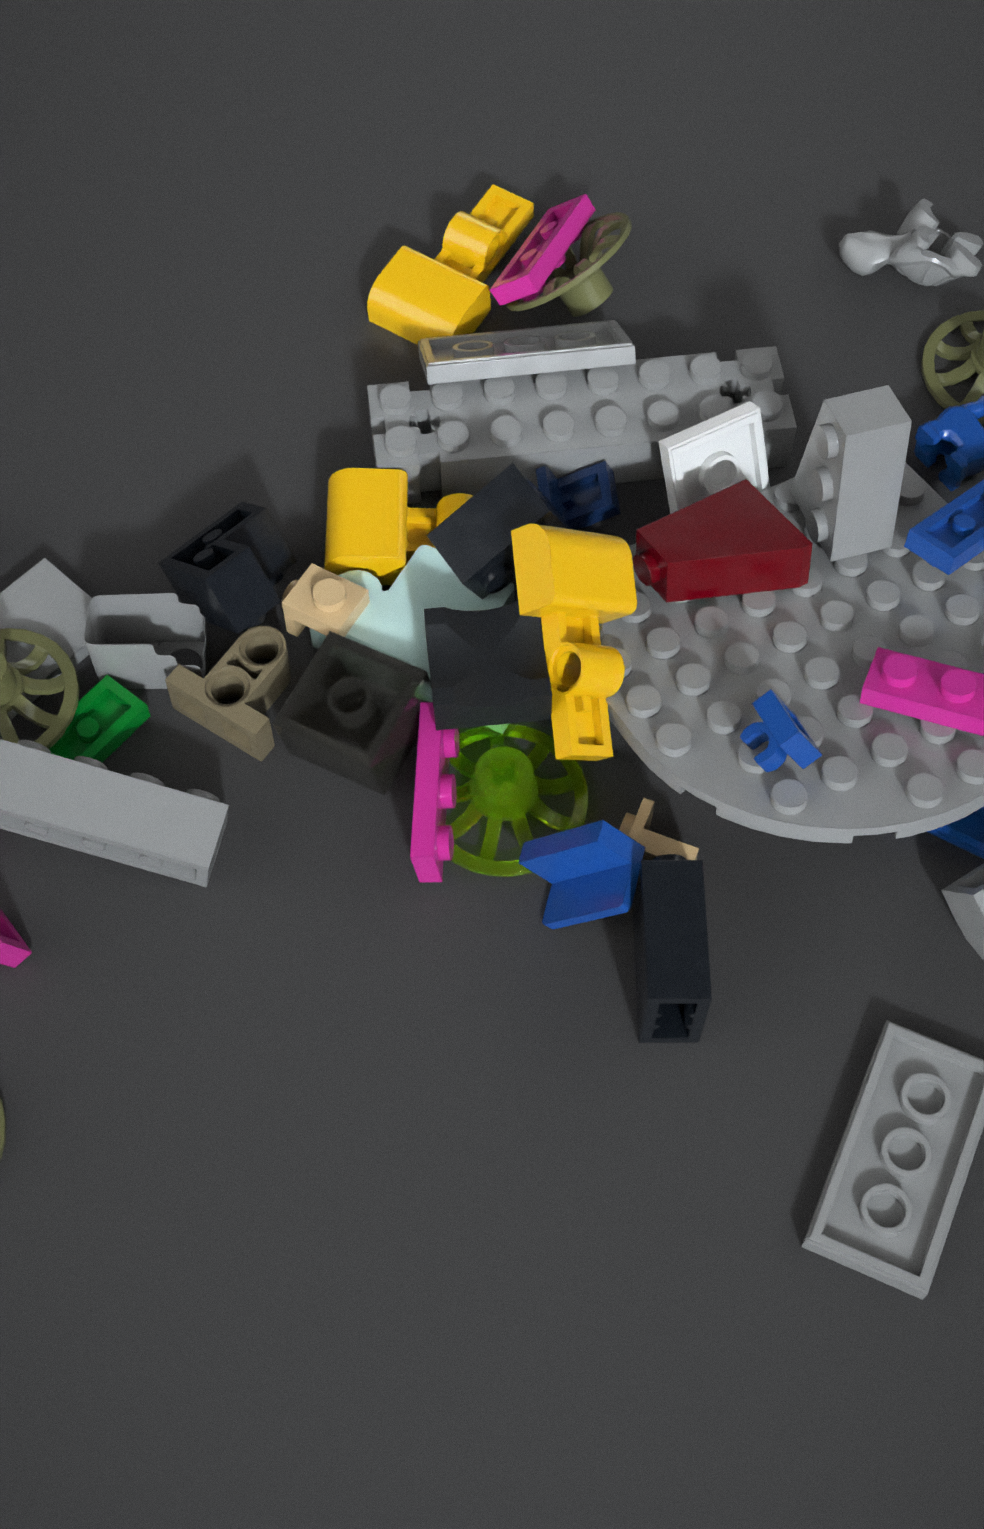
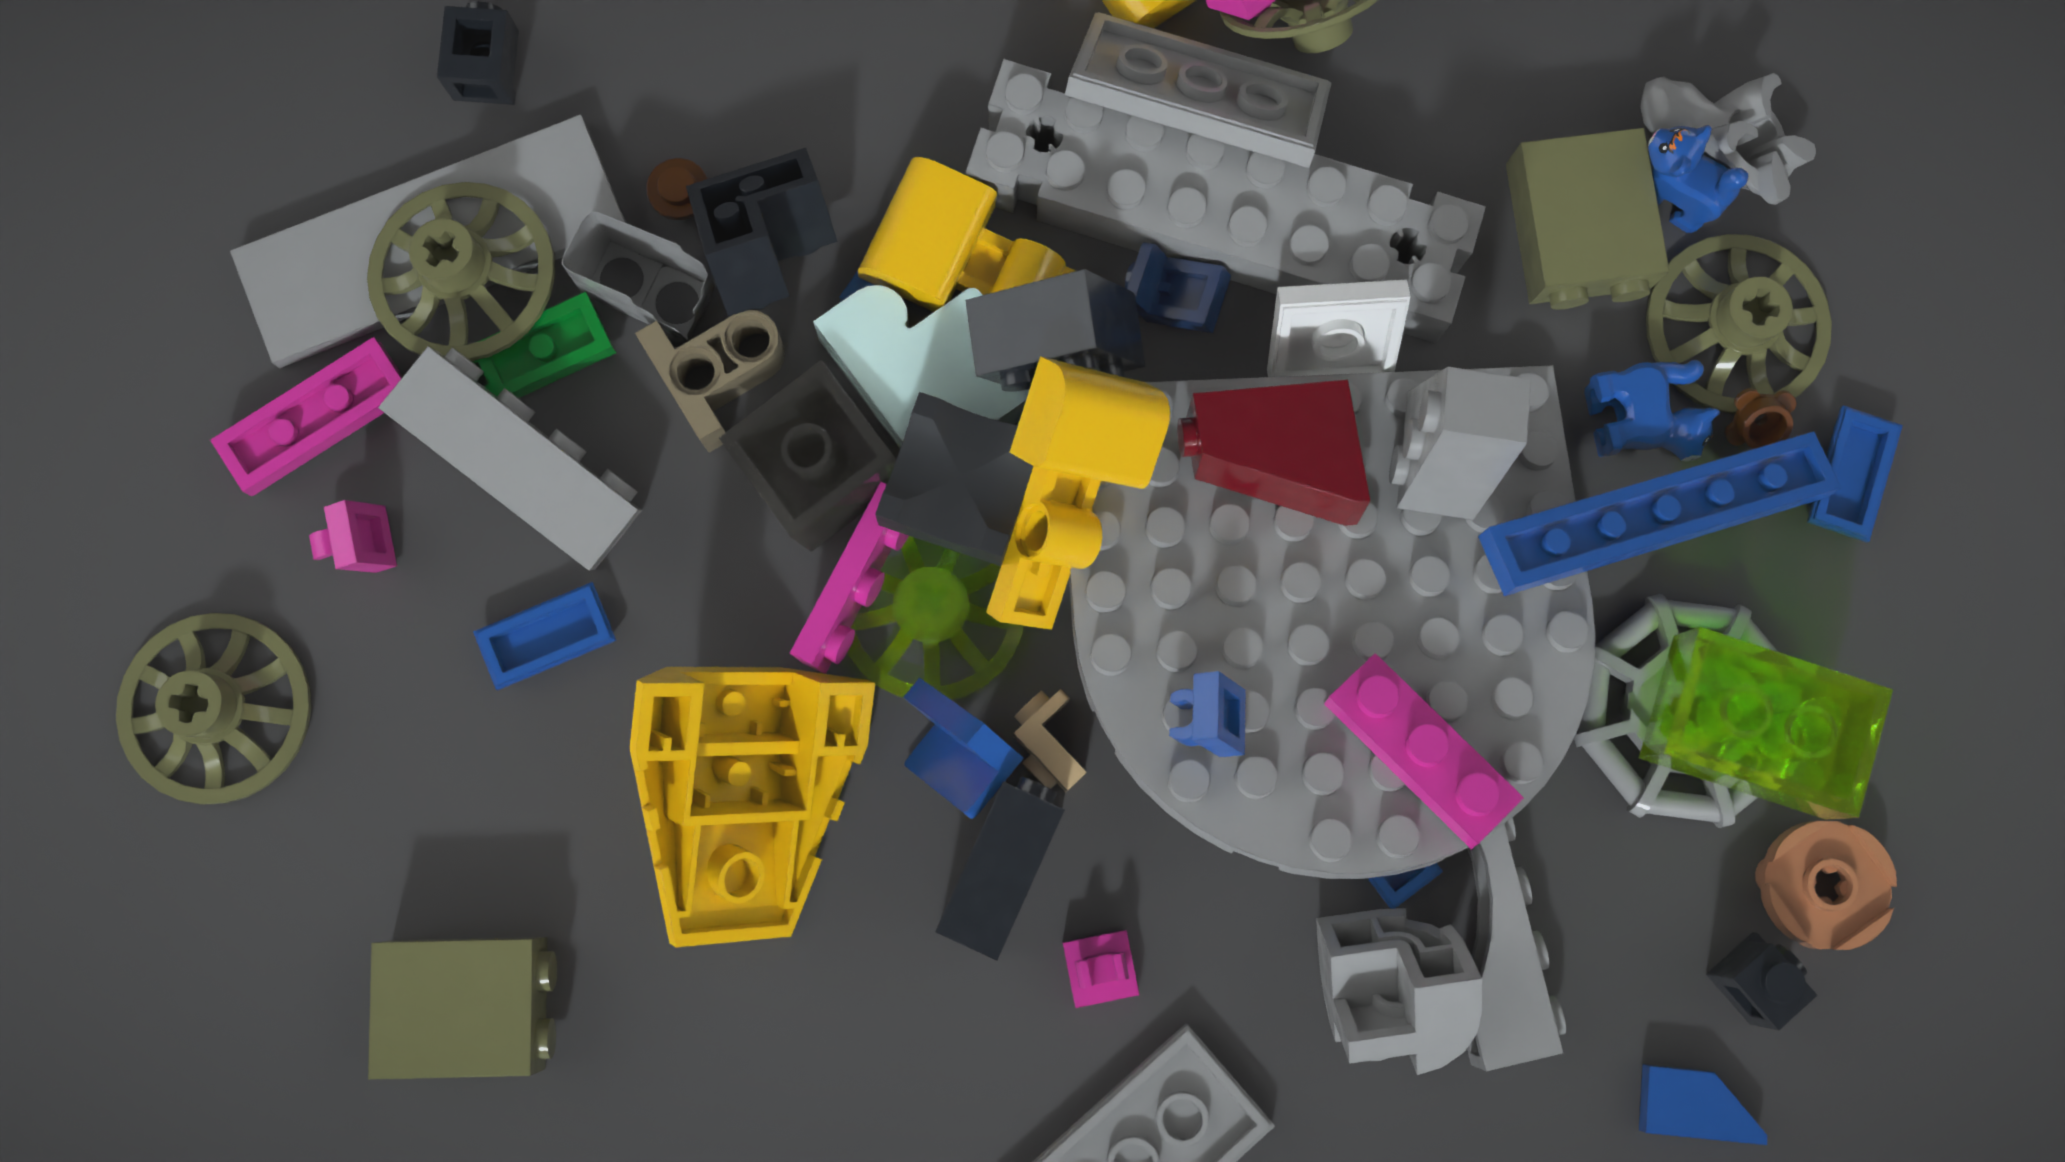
camera: 20 degrees right, 20 degrees up
(145, 577) = (668, 188): none -> reddish brown plate
(188, 950) = (544, 636): none -> blue tile
(254, 1284) = (460, 1008): none -> olive brick
(322, 602) = (834, 316): tan bracket -> none
(426, 985) = (740, 789): none -> yellow wedge
(790, 1010) = (1100, 968): none -> dark pink tile
(848, 335) = (1587, 218): none -> olive brick
(905, 284) = (1689, 178): none -> blue animal

